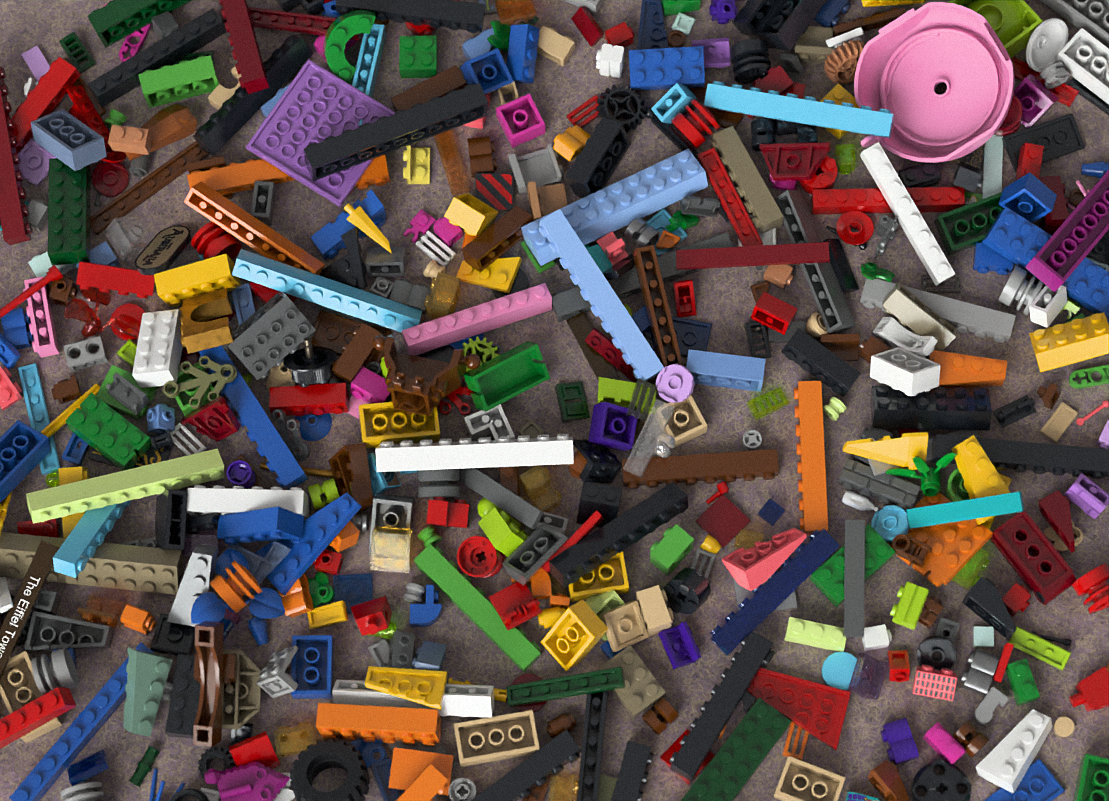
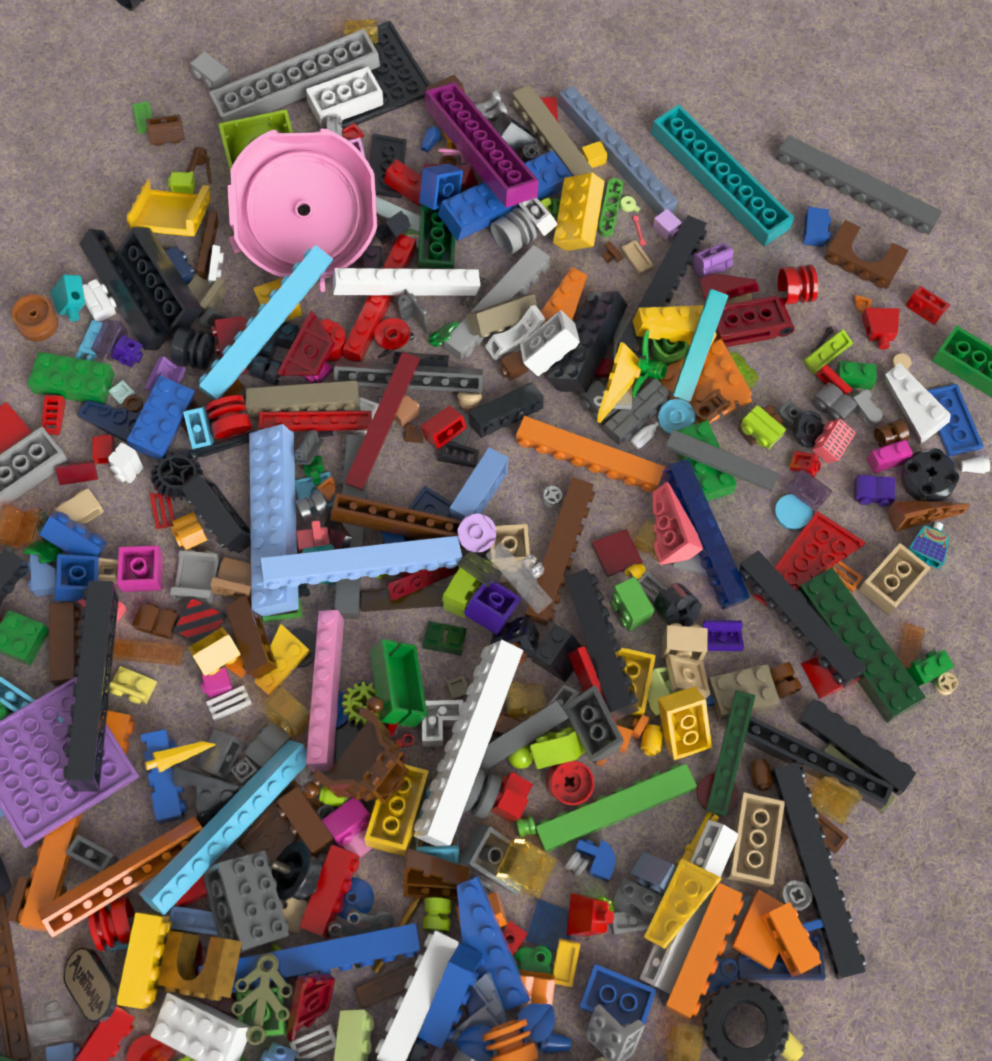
camera: 75 degrees left, 5 degrees down
(241, 474) = (382, 995): dark purple wheel -> none
(420, 223) = (195, 706): dark pink plate -> none
(433, 268) = (252, 712): tan wheel -> none
(515, 605) = (631, 767): red hinge -> none
(684, 298) = (390, 495): red slope -> none
(722, 488) = (586, 540): red hand -> none
(751, 404) = (522, 484): clear neon green slope -> none
(771, 512) = (625, 508): clear blue plate -> none
(815, 634) = (755, 517): yellowish green brick -> none
(834, 408) = (551, 417): yellowish green wheel -> none
(842, 62) = (237, 272): nougat gear -> none
(842, 345) = (496, 387): reddish brown panel -> none
(845, 158) = (325, 311): clear neon green brick -> none
(876, 637) = (777, 465): white brick -> none
(983, 636) = (802, 389): light aqua tile -> none
(989, 260) = (471, 246): blue brick -> none
(989, 606) = (784, 368): black slope -> none
(1015, 411) = (613, 279): black hinge -> none
(1016, 599) = (780, 351): red brick -> none
(1046, 43) = (300, 118): white dish -> none

